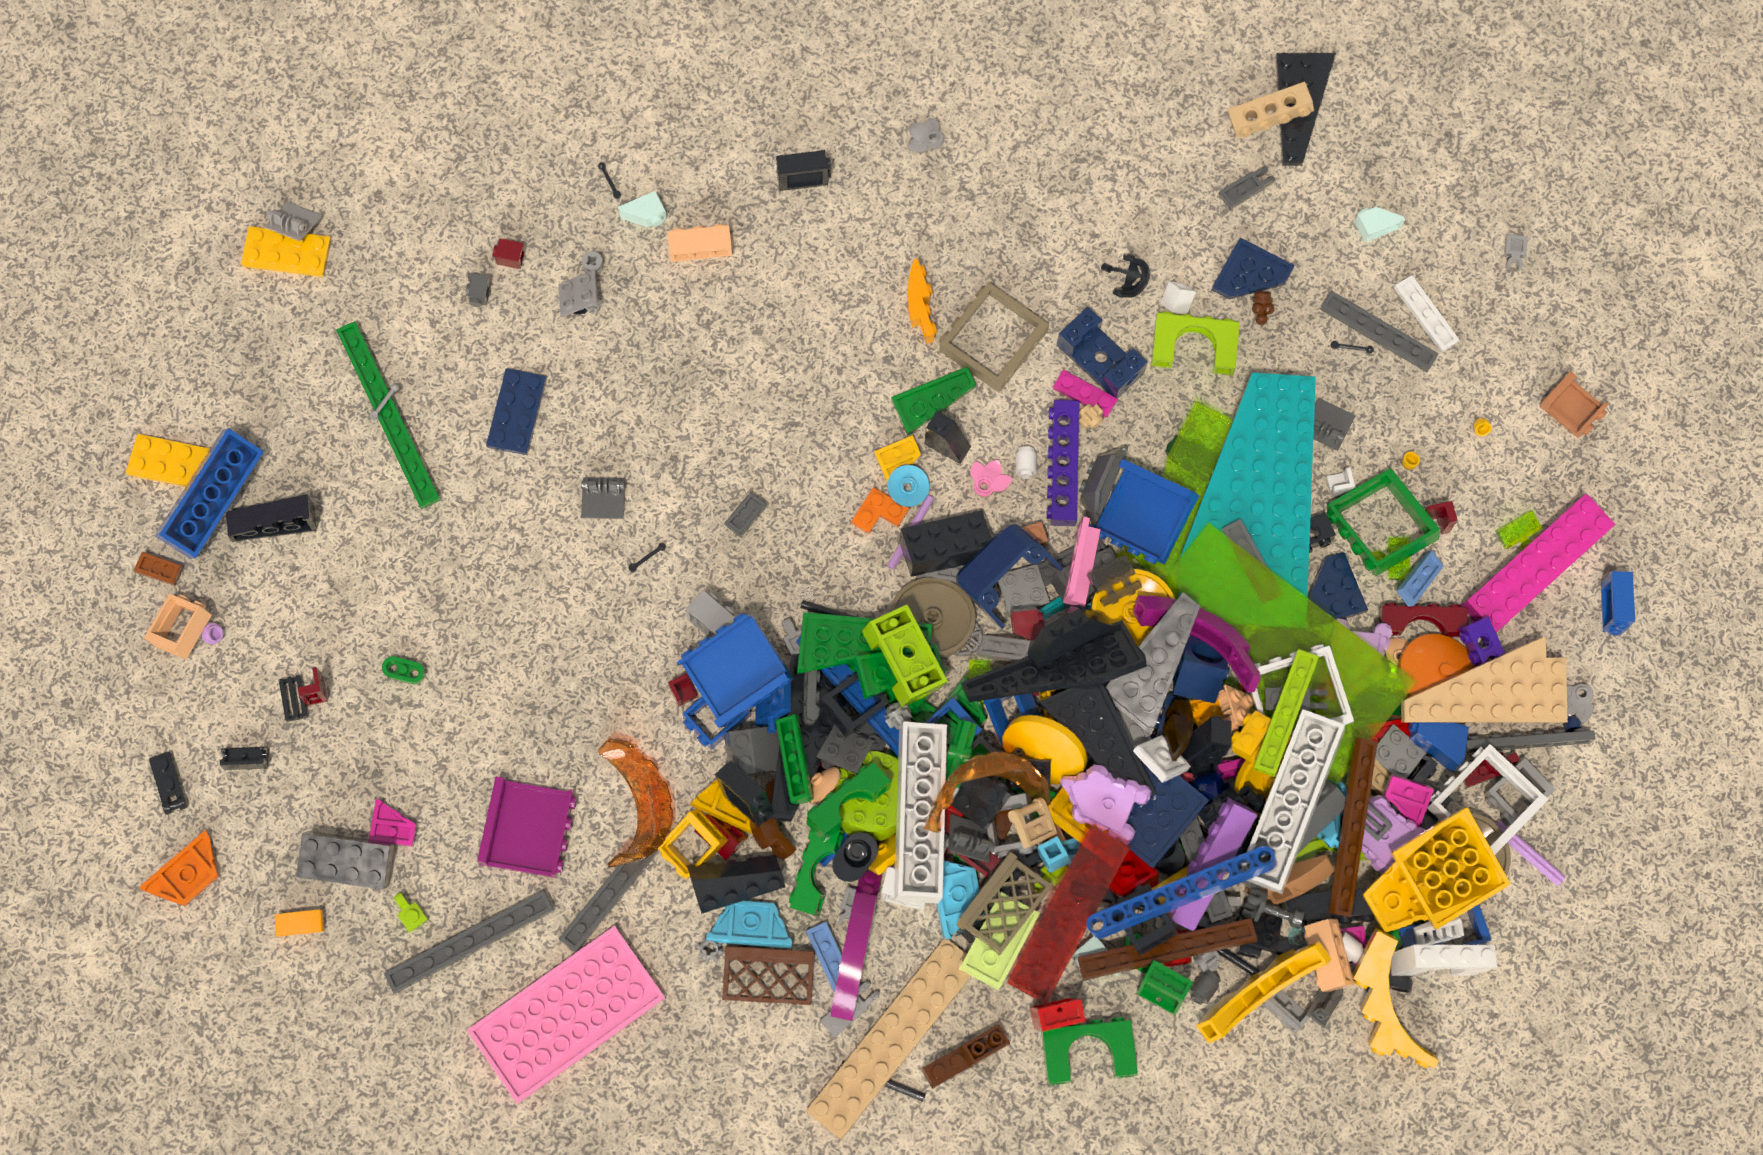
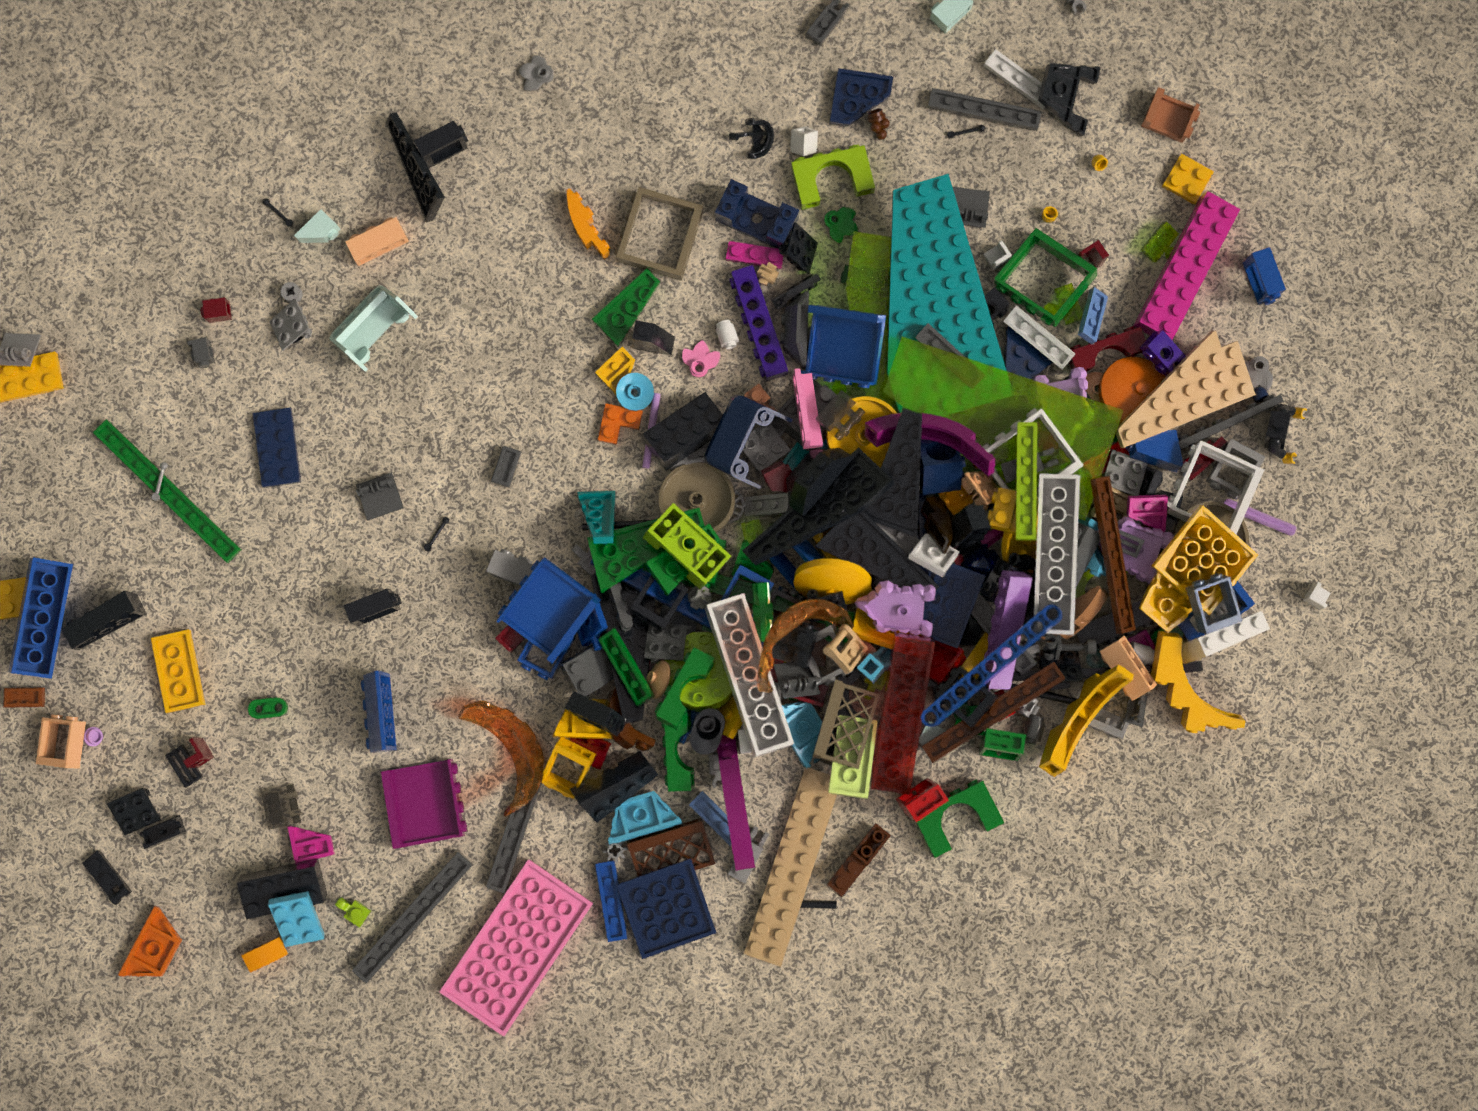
camera: 15 degrees left, 10 degrees up
(223, 724) = (134, 811): none -> black hinge
(326, 599) = (178, 671): none -> yellow plate
(348, 896) = (296, 919): none -> medium azure plate
(370, 777) = (275, 807): none -> clear smoke plate
(517, 714) = (379, 712): none -> blue slope
(553, 605) = (373, 607): none -> black window
(660, 321) = (368, 323): none -> light aqua windscreen
(685, 1003) = (611, 901): none -> blue plate
(741, 1031) = (666, 908): none -> dark blue plate
(768, 193) = (422, 181): none -> black wing
(824, 594) = (599, 514): none -> teal wing
(1131, 441) = (795, 291): none -> black hinge
(1134, 402) = (800, 249): none -> black hinge
(1189, 395) = (844, 223): none -> green plate
(1354, 580) = (1039, 337): none -> white plate
(1463, 916) = (1231, 617): none -> sand blue window
(1465, 339) = (1060, 91): none -> black wing
(1563, 959) = (1317, 596): none -> white panel
(1571, 476) = (1187, 179): none -> yellow plate
(1580, 766) = (1278, 431): none -> black torso

